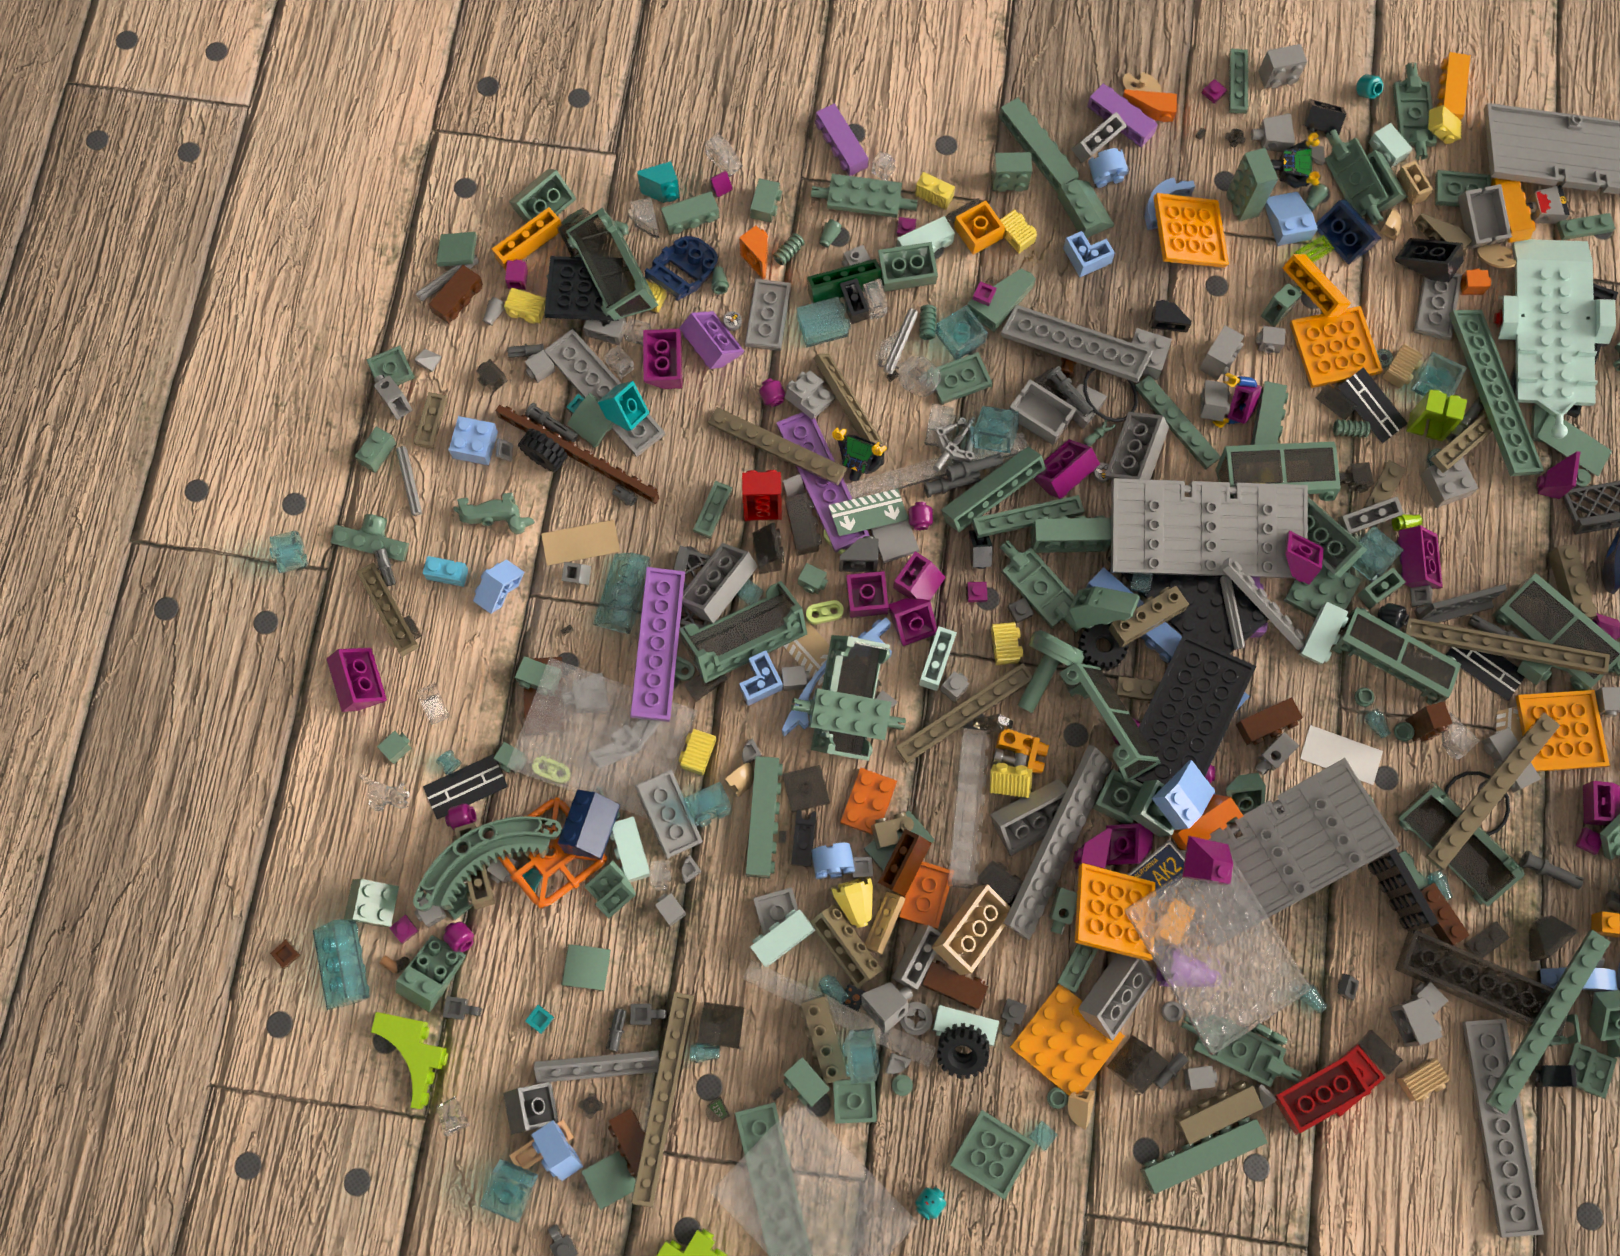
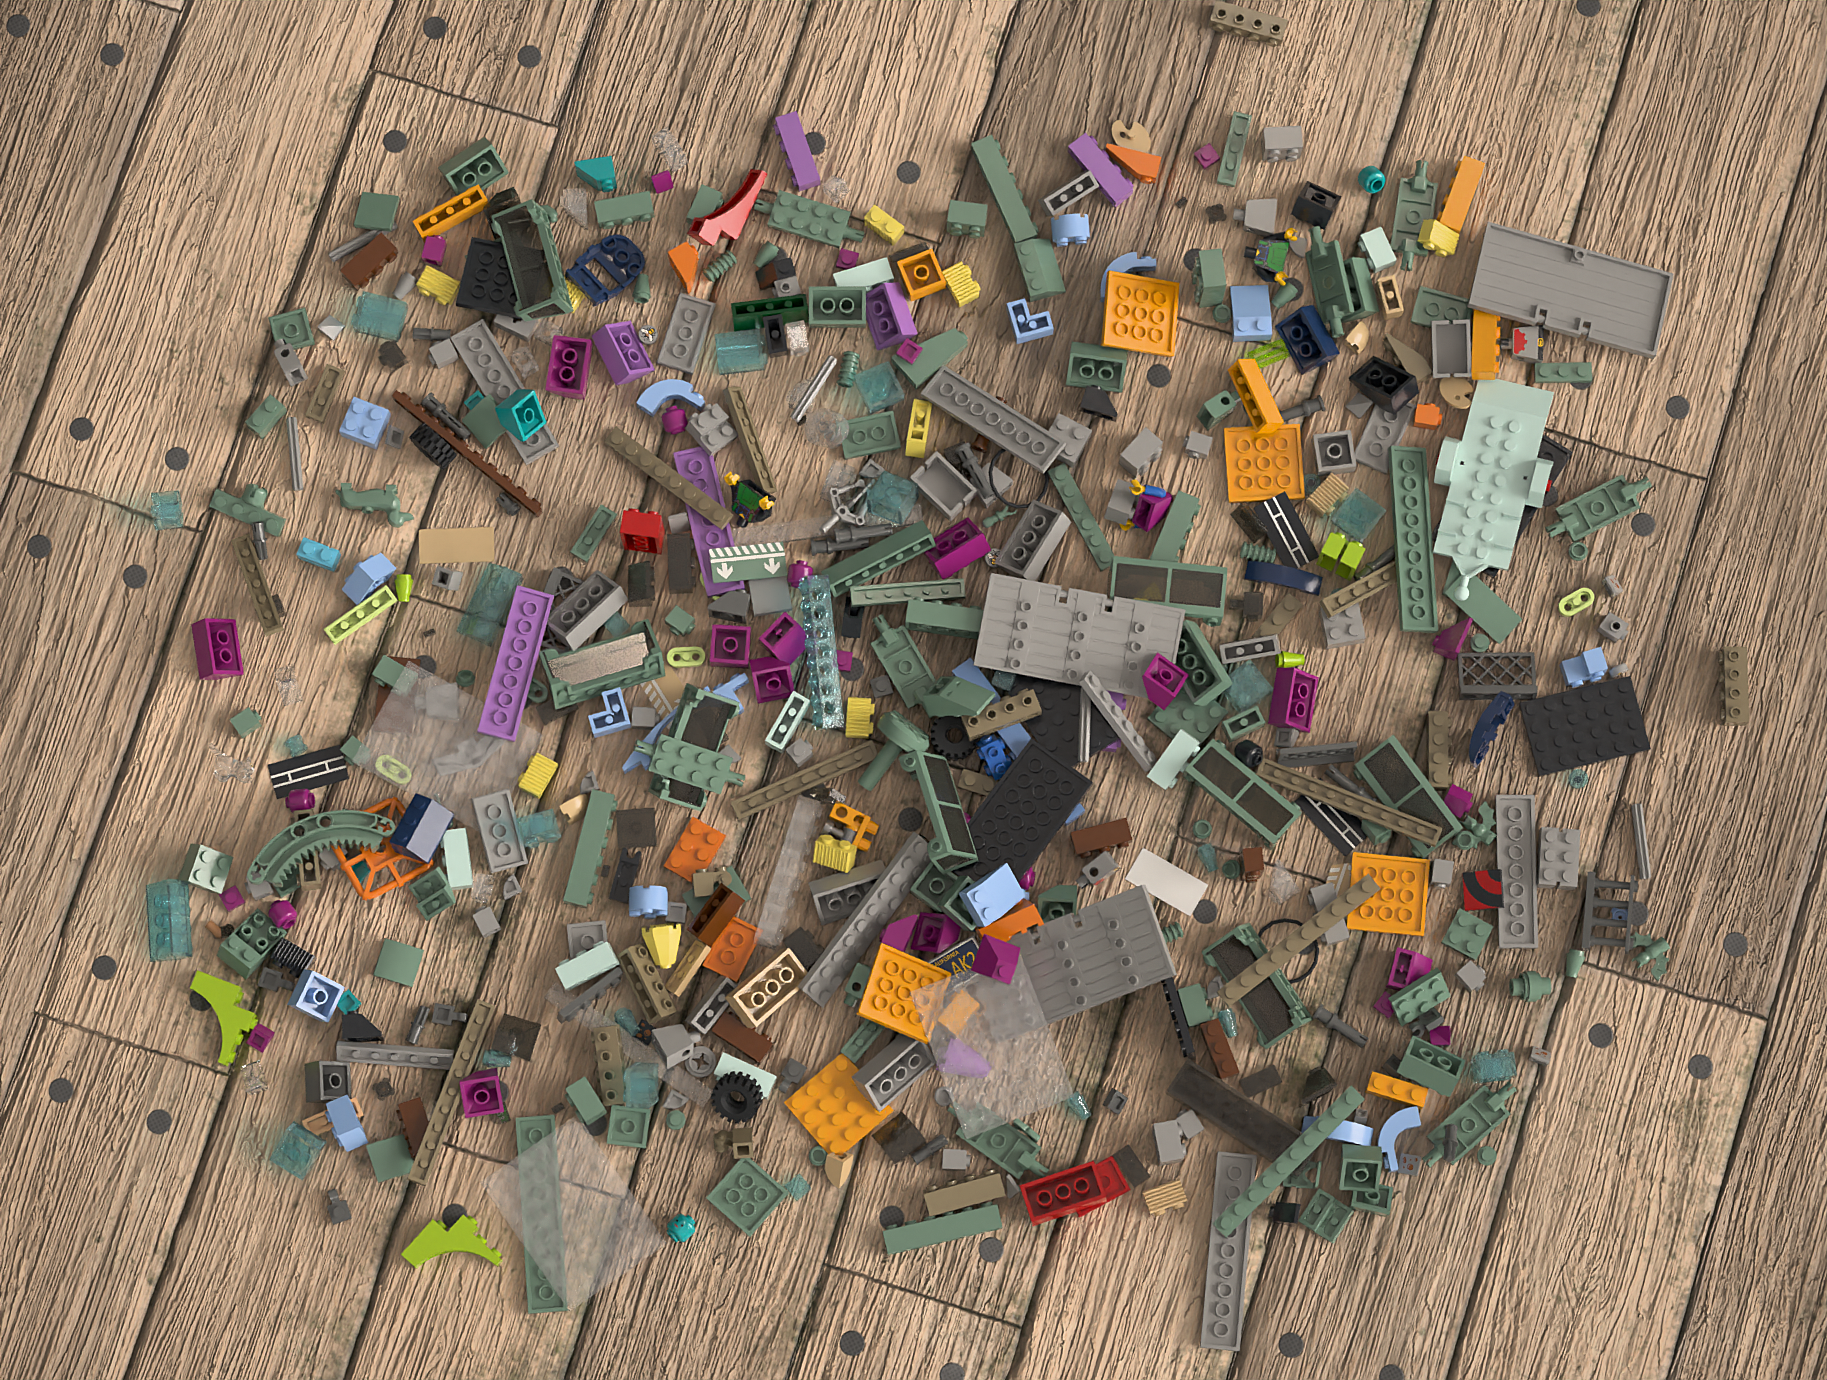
camera: 10 degrees right, 5 degrees up
(285, 954) = (118, 903): reddish brown plate -> none
(453, 1071) = (260, 1037): none -> magenta slope
(473, 341) = (379, 316): none -> clear light blue brick
(476, 981) = (292, 957): none -> black brick
(495, 623) = (360, 615): none -> yellowish green brick
(505, 1017) = (316, 995): none -> light blue brick
(534, 588) = (403, 587): none -> lime cone
(555, 1045) = (359, 1029): none -> black slope
(609, 668) = (465, 678): none -> sand green plate
(695, 1092) = (481, 1093): none -> magenta slope
(760, 367) = (667, 390): none -> light blue arch
(792, 203) = (731, 216): none -> arch
(796, 963) = (585, 1000): none -> dark grey plate
(841, 244) = (775, 271): none -> black slope
(956, 269) = (889, 316): none -> medium lavender slope
(964, 592) = (826, 643): none -> clear light blue brick
(968, 410) = (871, 470): none -> light grey tile
(973, 1096) = (739, 1140): none -> dark tan brick
(1005, 365) = (918, 428): none -> light yellow slope
(1148, 659) = (992, 752): none -> blue brick
(1159, 283) = (1096, 366): none -> sand green slope
(1262, 221) = (1221, 313): none -> sand green plate
(1363, 291) = (1304, 408): none -> dark grey pin
(1379, 445) = (1283, 576): none -> dark blue slope
(1400, 326) = (1333, 453): none -> light grey brick
(1409, 282) = (1359, 405): none -> light grey slope
(1417, 851) = (1213, 987): none -> light grey tile

